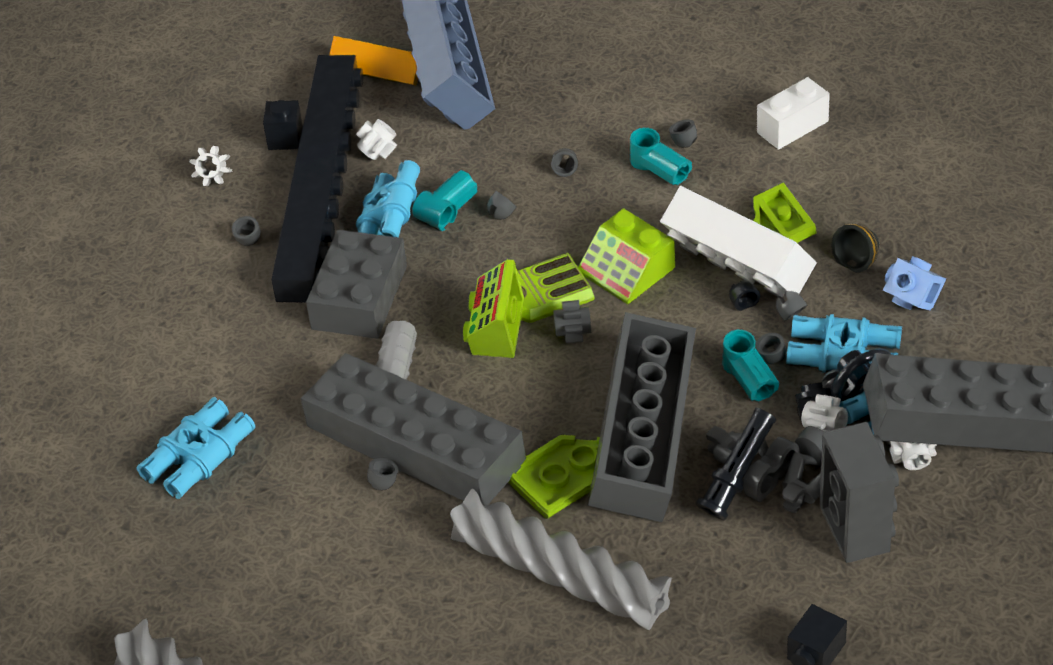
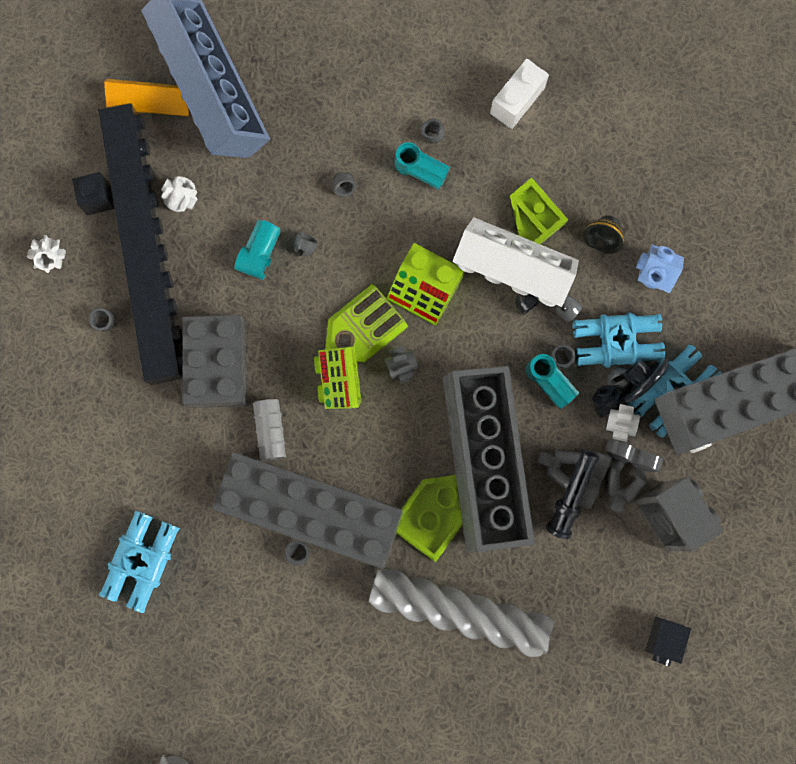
camera: 20 degrees left, 35 degrees up
(389, 202) = (213, 273): medium azure pin -> none

